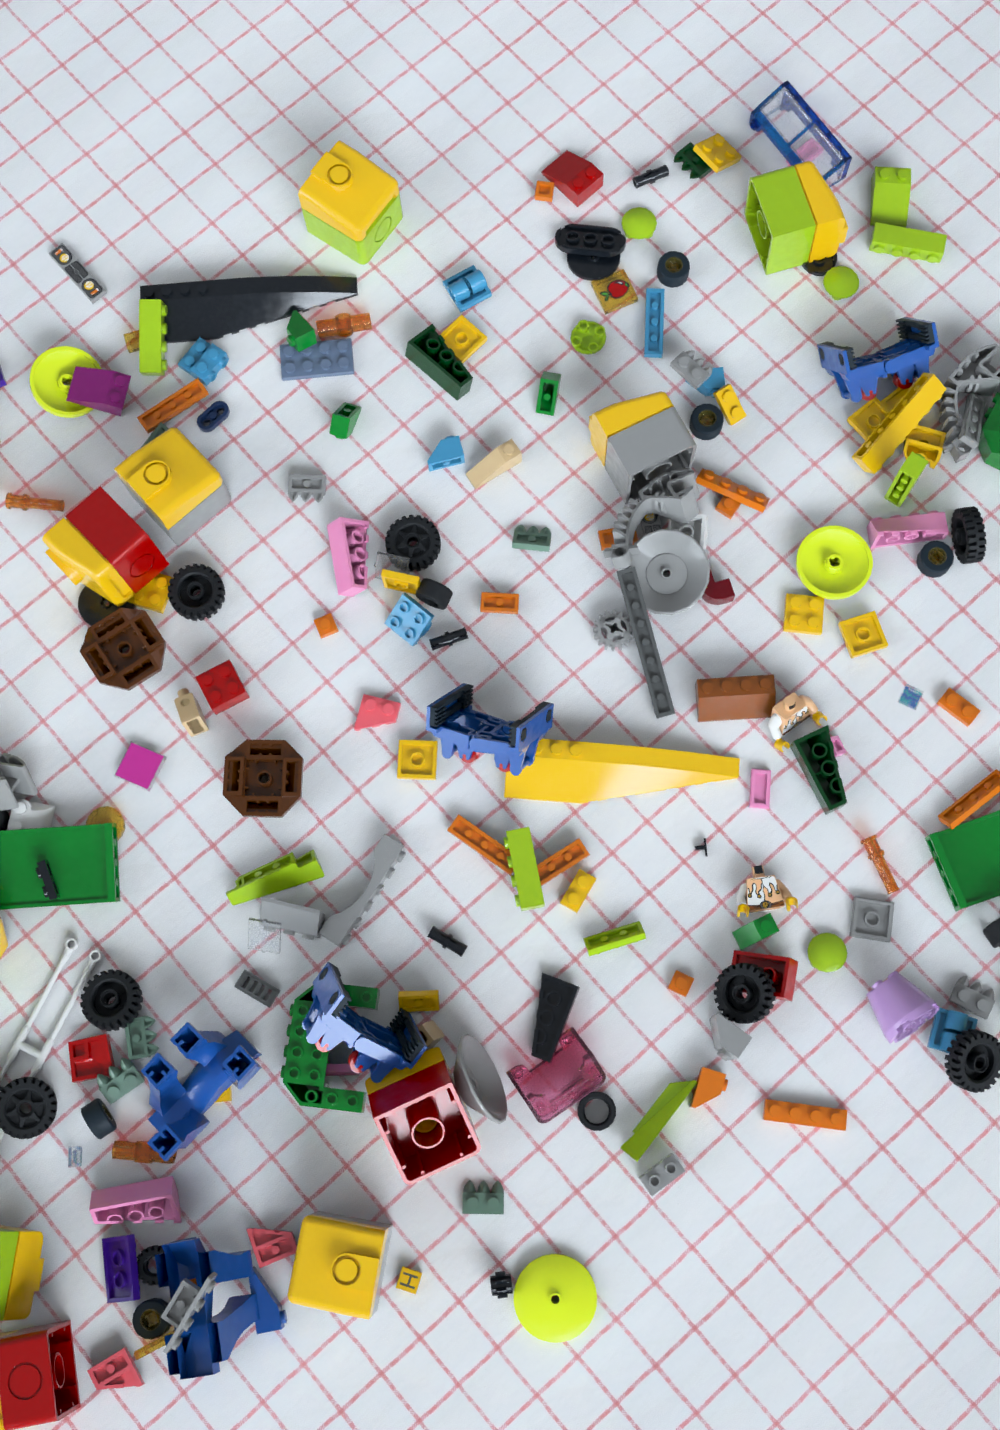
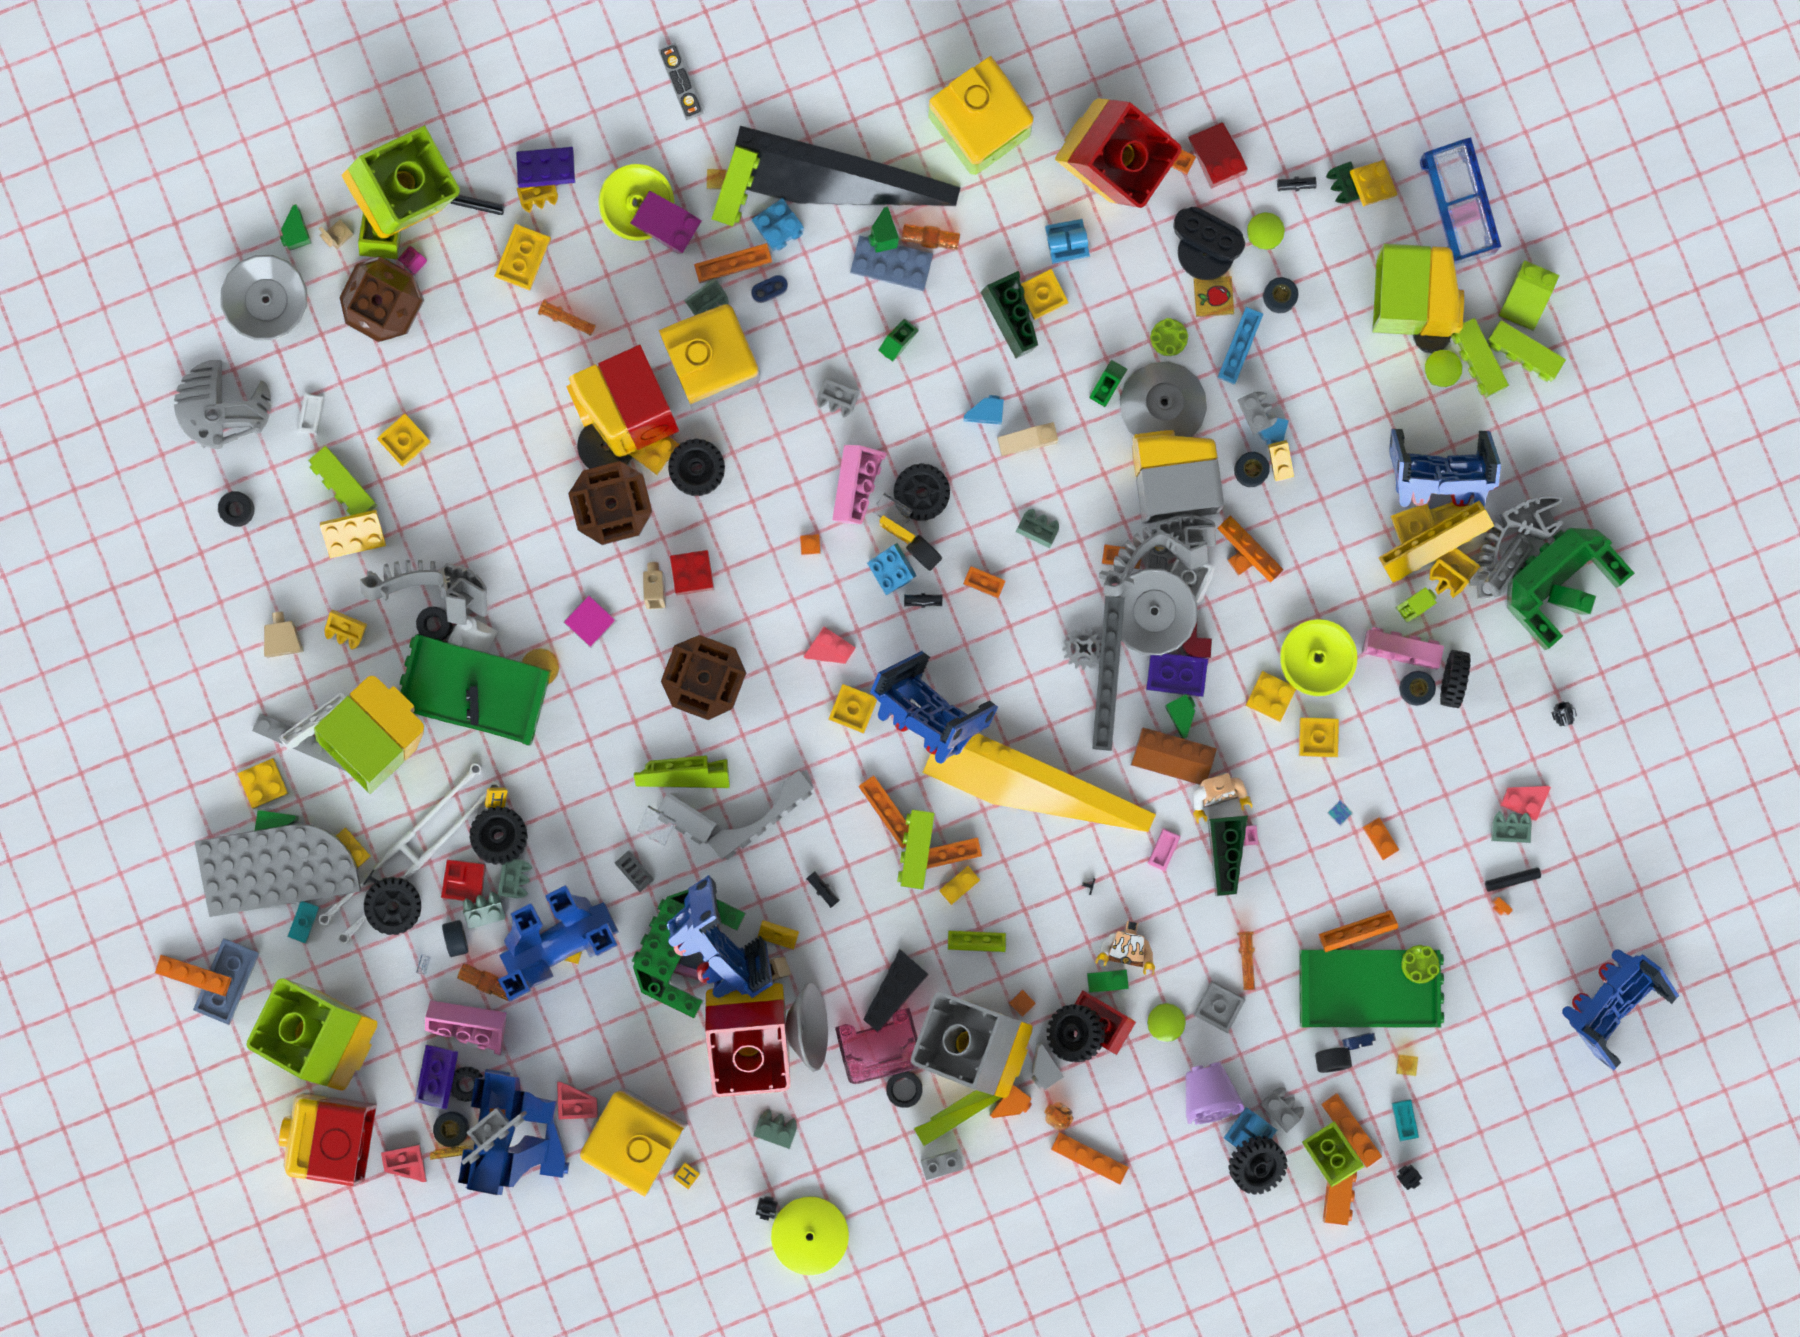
camera: 10 degrees right, 10 degrees up
(98, 963) = (496, 797): none -> yellow tile
(485, 190) = (1118, 152): none -> red piece
(584, 388) = (1158, 381): none -> light grey dish
(647, 1038) = (971, 1045): none -> light grey piece
(709, 623) = (1177, 674): none -> dark purple plate
(727, 657) = (1182, 713): none -> green slope
(758, 1082) = (1058, 1116): none -> clear orange head
(870, 262) = (1480, 359): none -> lime brick

